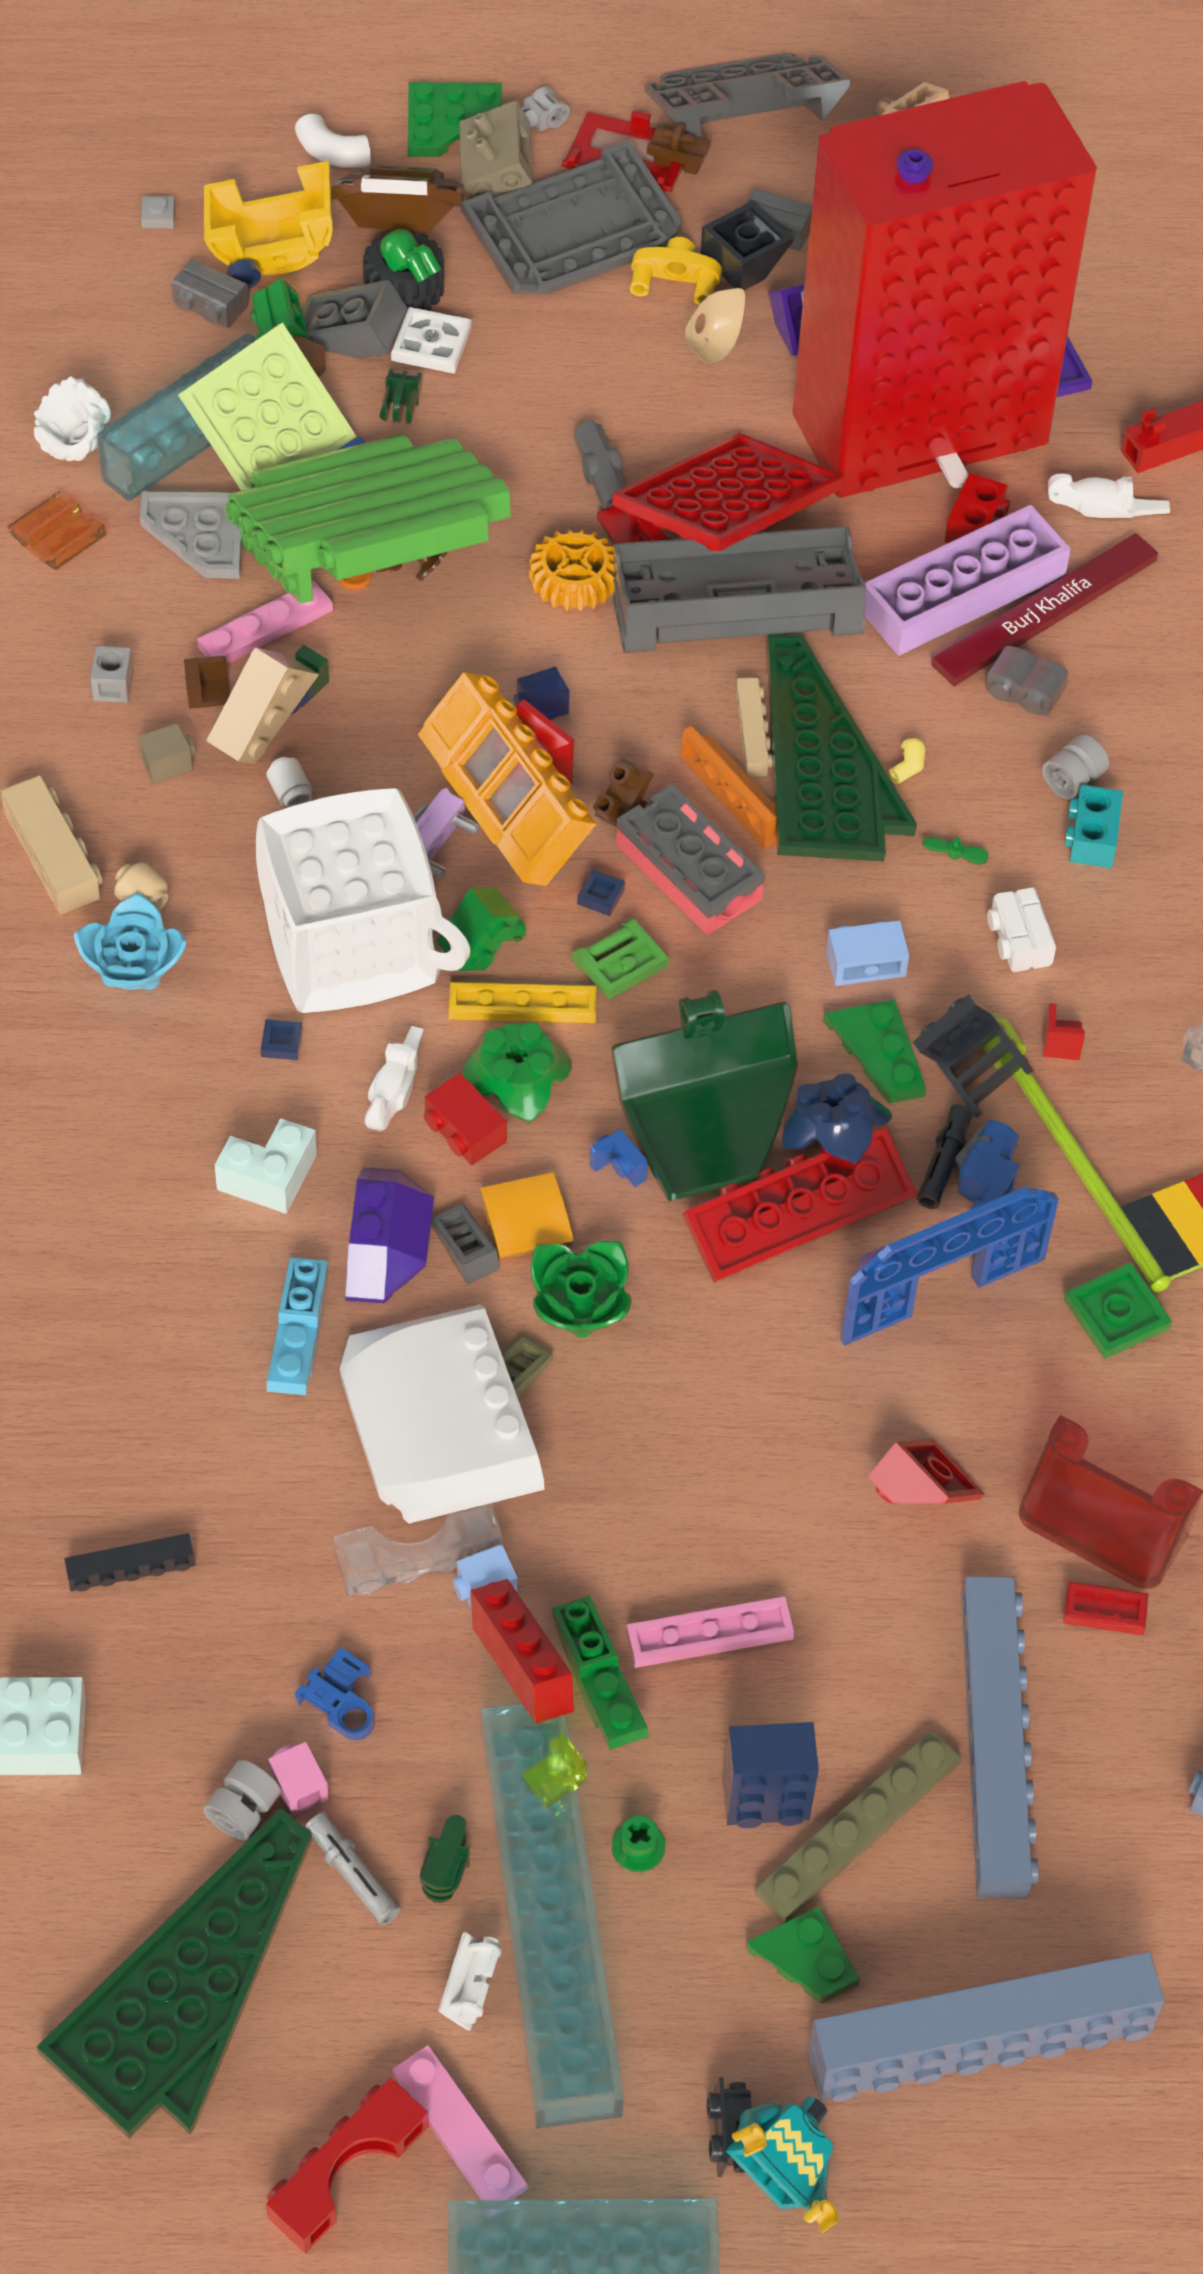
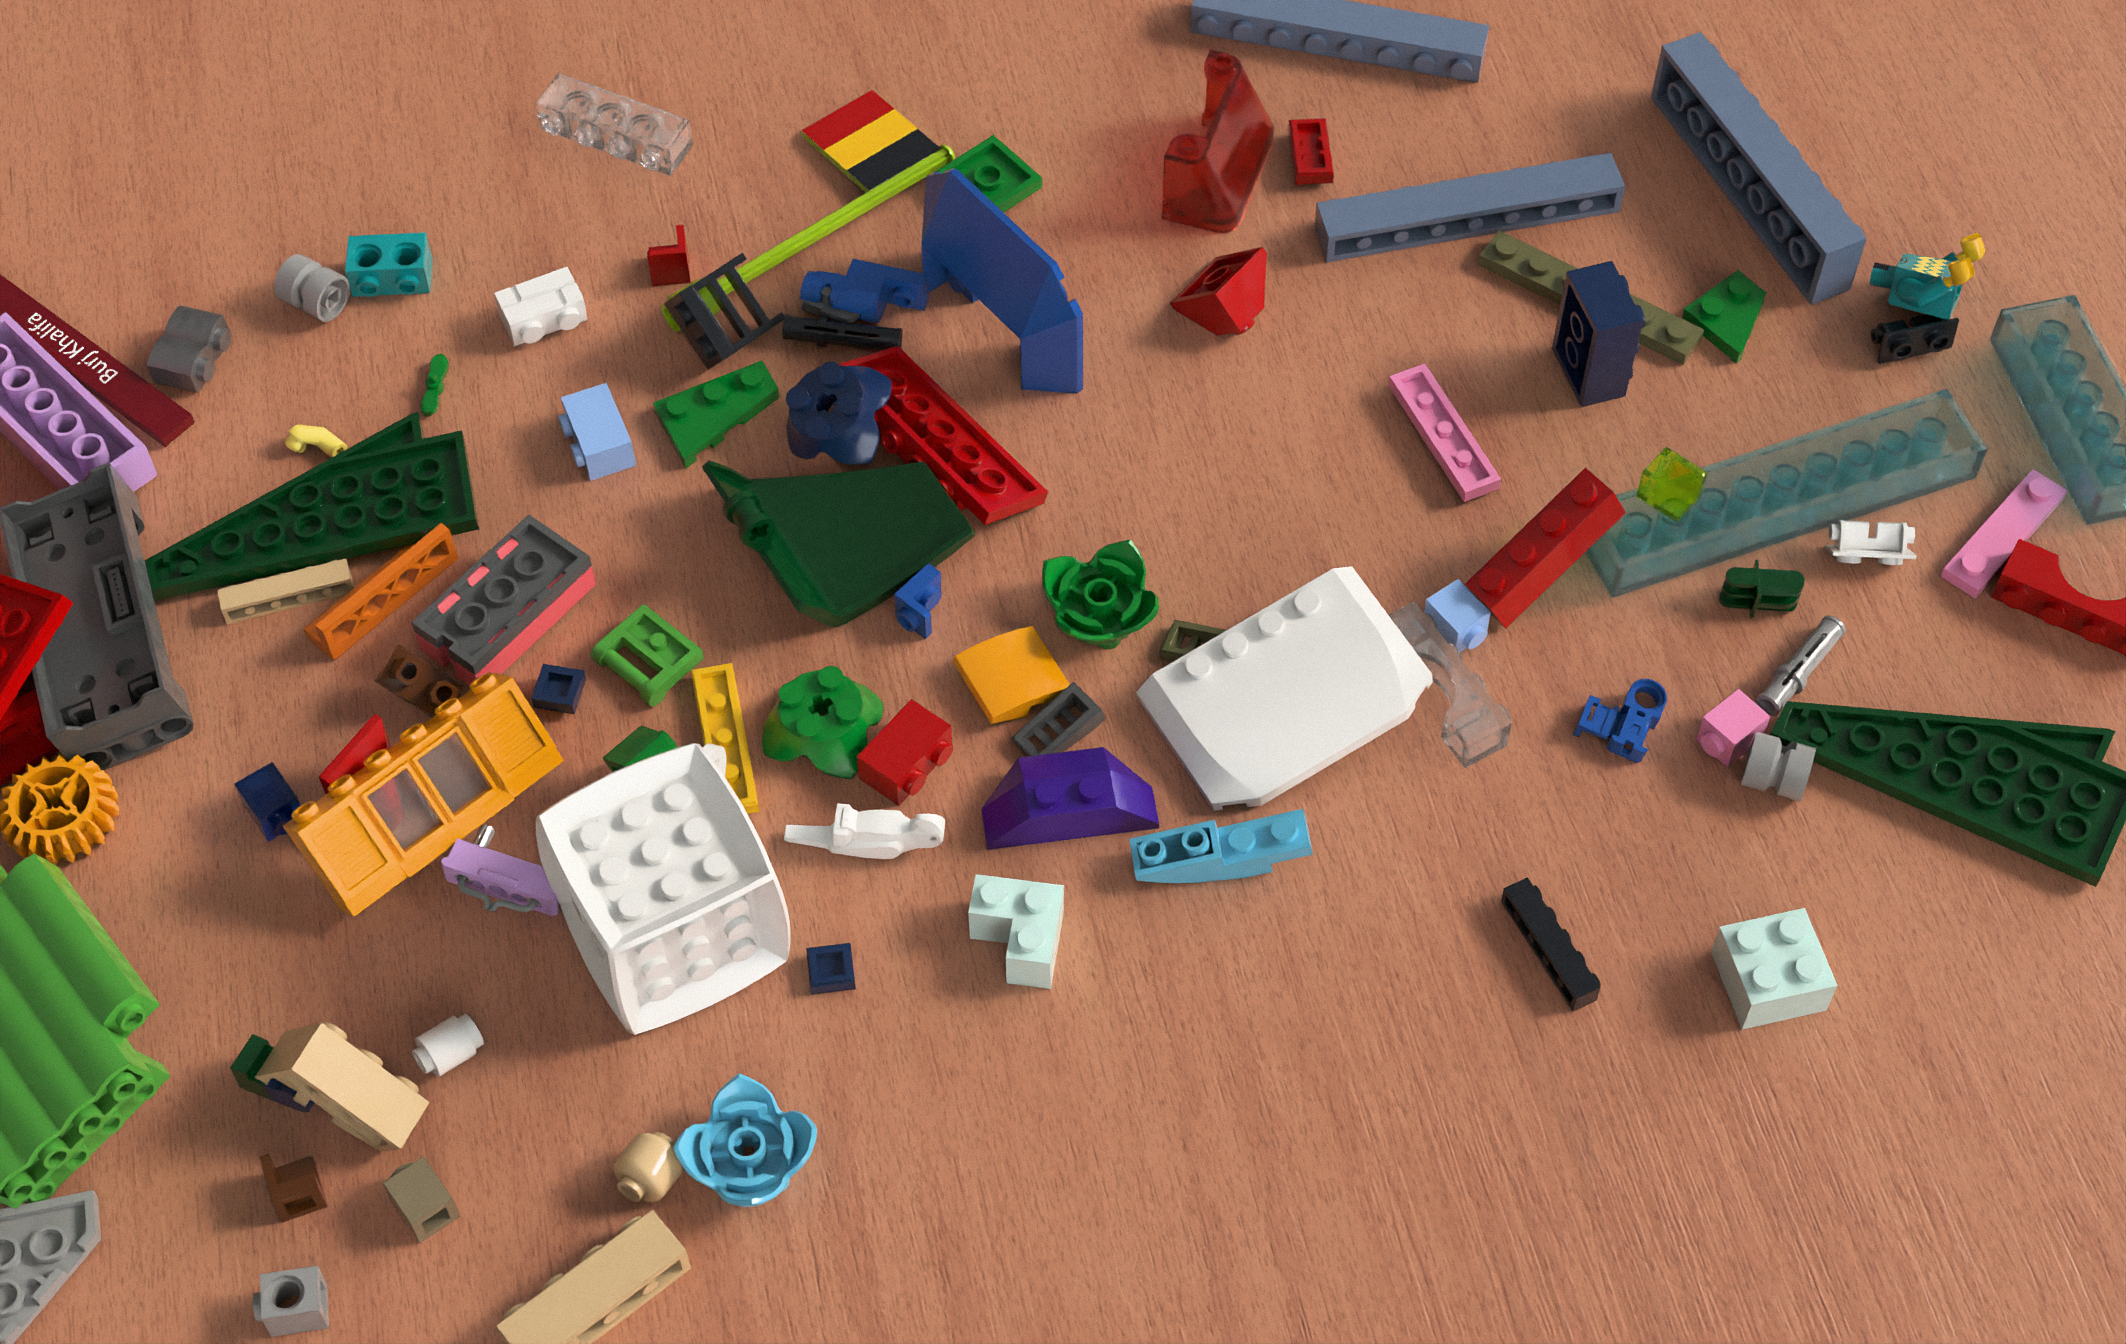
camera: 100 degrees left, 0 degrees up
(264, 625) = (189, 1157): bright pink plate -> none
(598, 1673) = (1512, 507): green slope -> none
(638, 1844) = (1680, 439): green piece -> none

